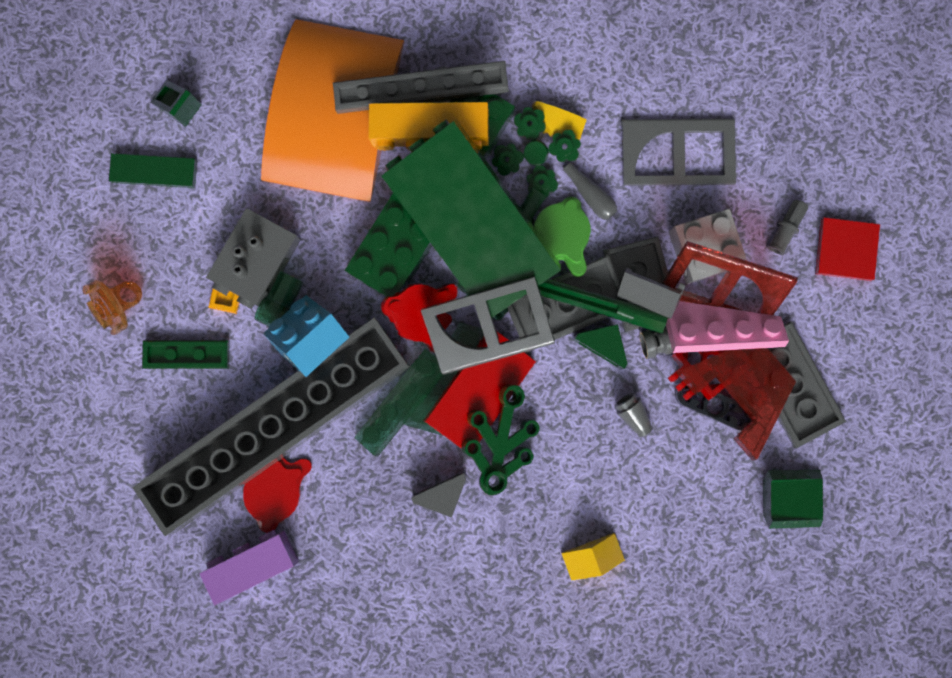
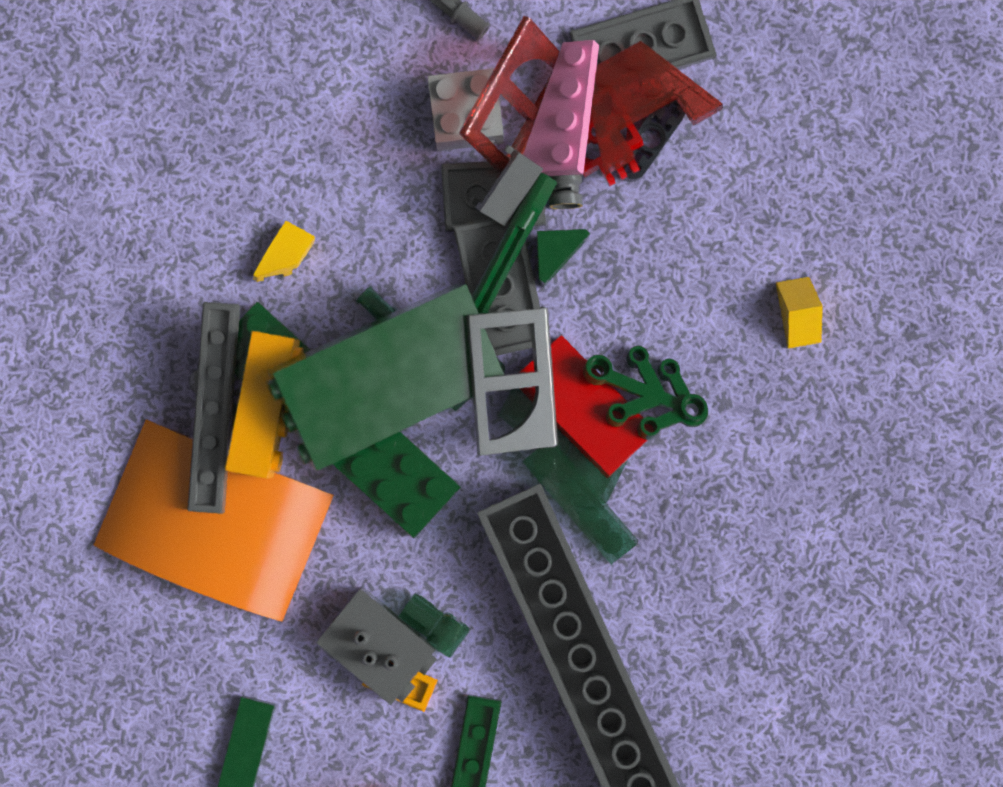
camera: 85 degrees left, 0 degrees up
(176, 102) = (167, 708): slope -> none
(248, 566) = (739, 715): medium lavender brick -> none
(275, 492) = (658, 669): red tile -> none
(306, 335) = (482, 597): dark azure brick -> none
(406, 306) = (472, 472): red tile -> none
(442, 496) = (698, 473): dark grey slope -> none
(536, 151) = (313, 287): dark green plant -> none
(566, 233) = (417, 271): bright green tile -> none
(595, 197) = (378, 229): dark grey piece -> none
(633, 413) = (642, 233): dark grey cone -> none
(639, 132) = (312, 160): dark grey window -> none
(793, 498) = (773, 71): dark green slope -> none

